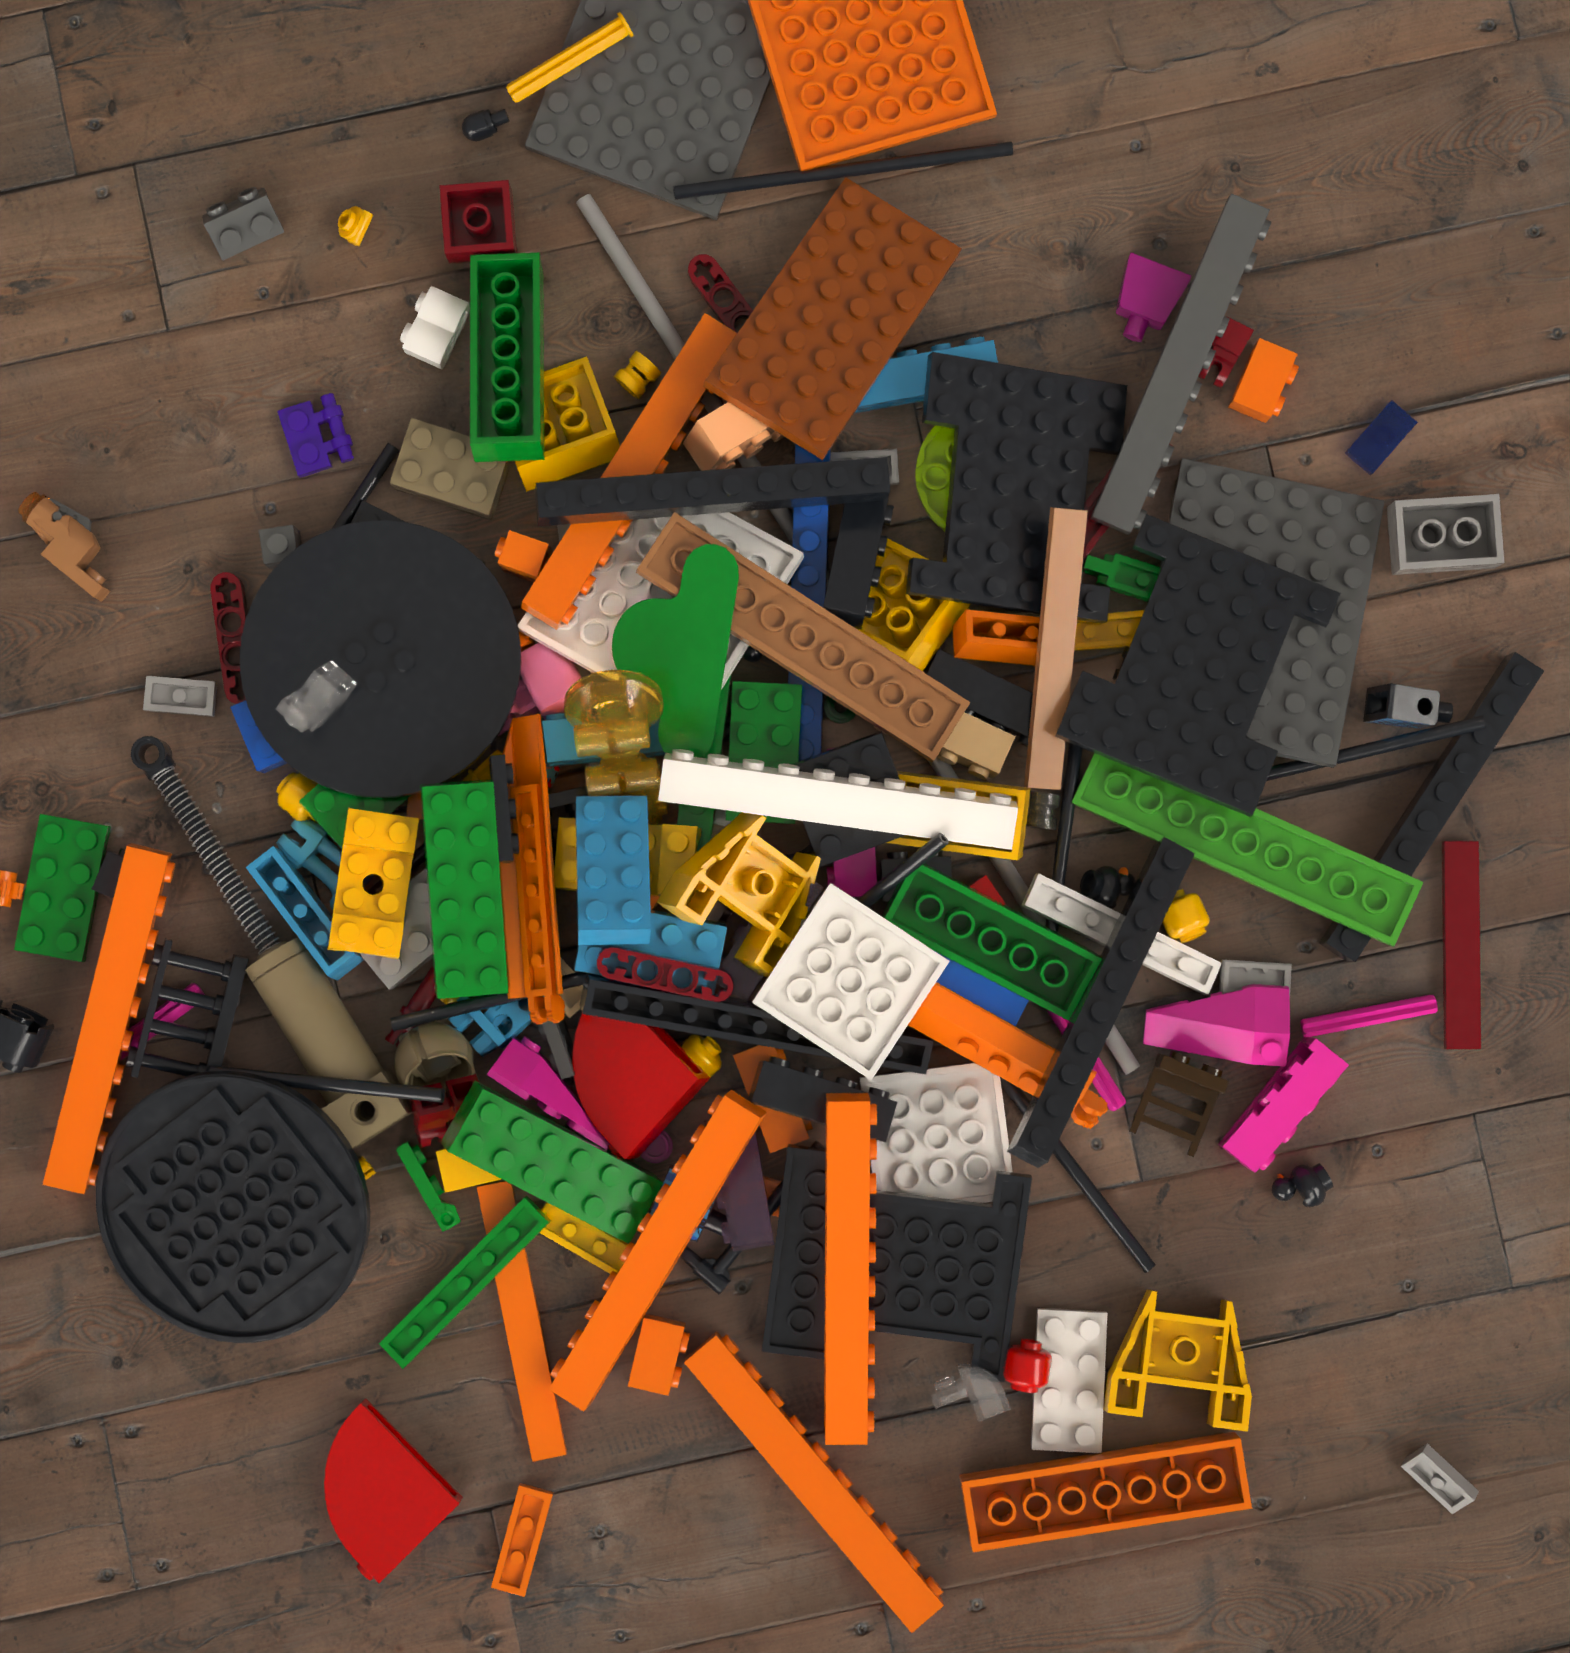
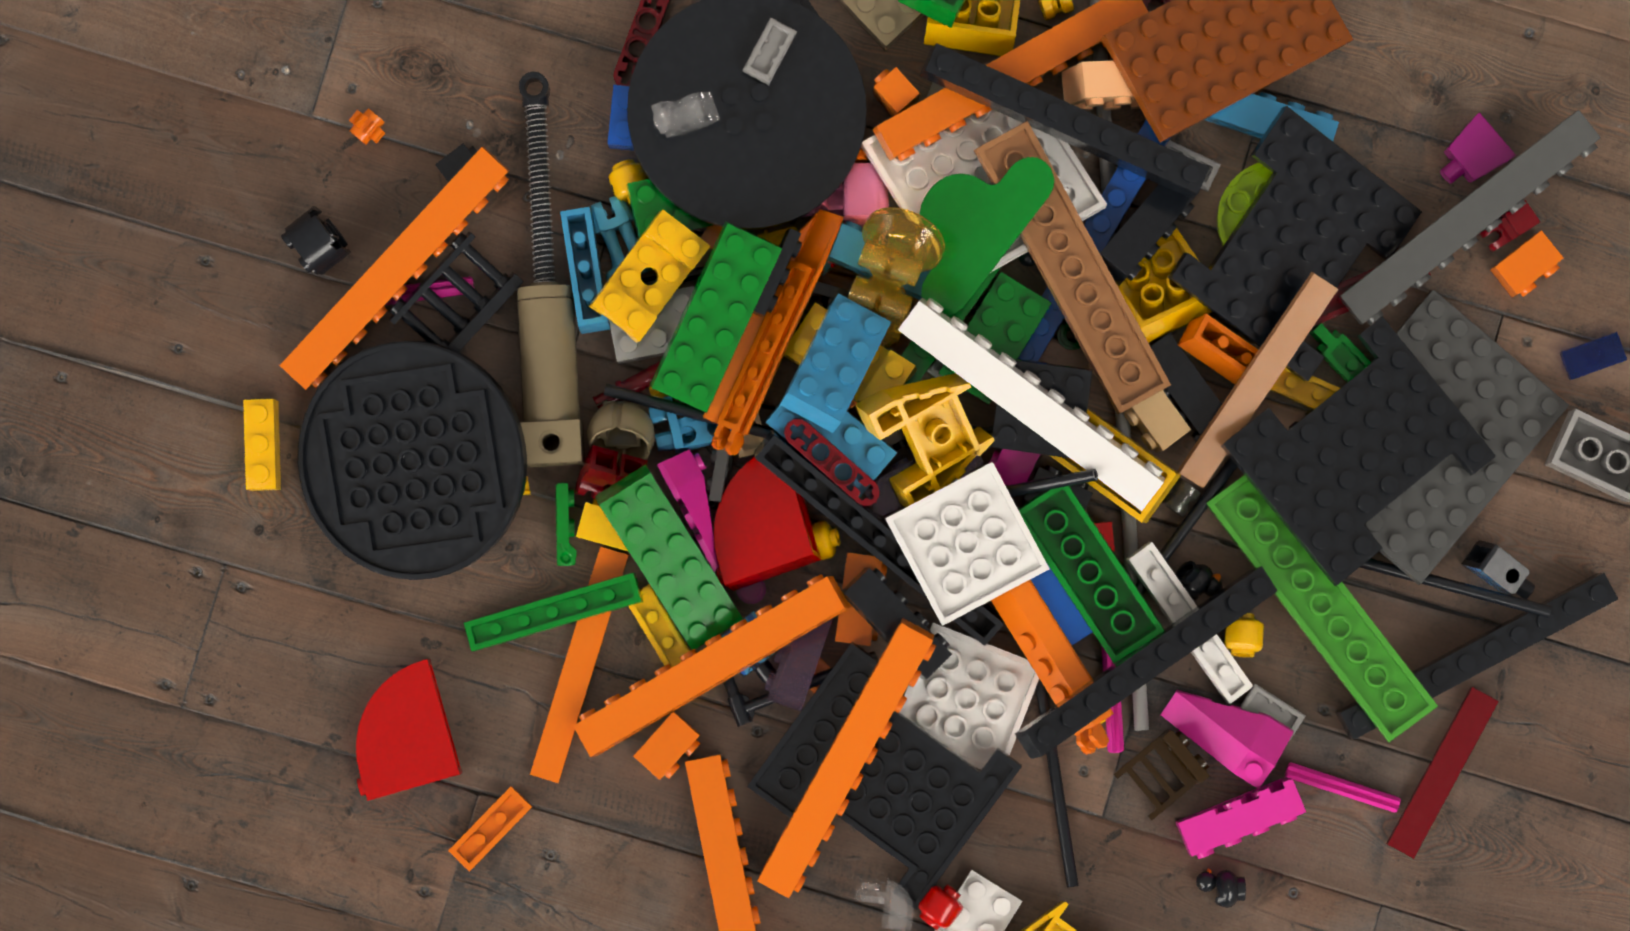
camera: 30 degrees right, 0 degrees up
(59, 891) = (411, 150): green plate -> none
(70, 1274) = (262, 444): none -> yellow brick
(180, 696) = (578, 56): light grey plate -> none
(347, 1085) = (552, 418): black piece -> none
(370, 585) = (769, 51): none -> light grey plate

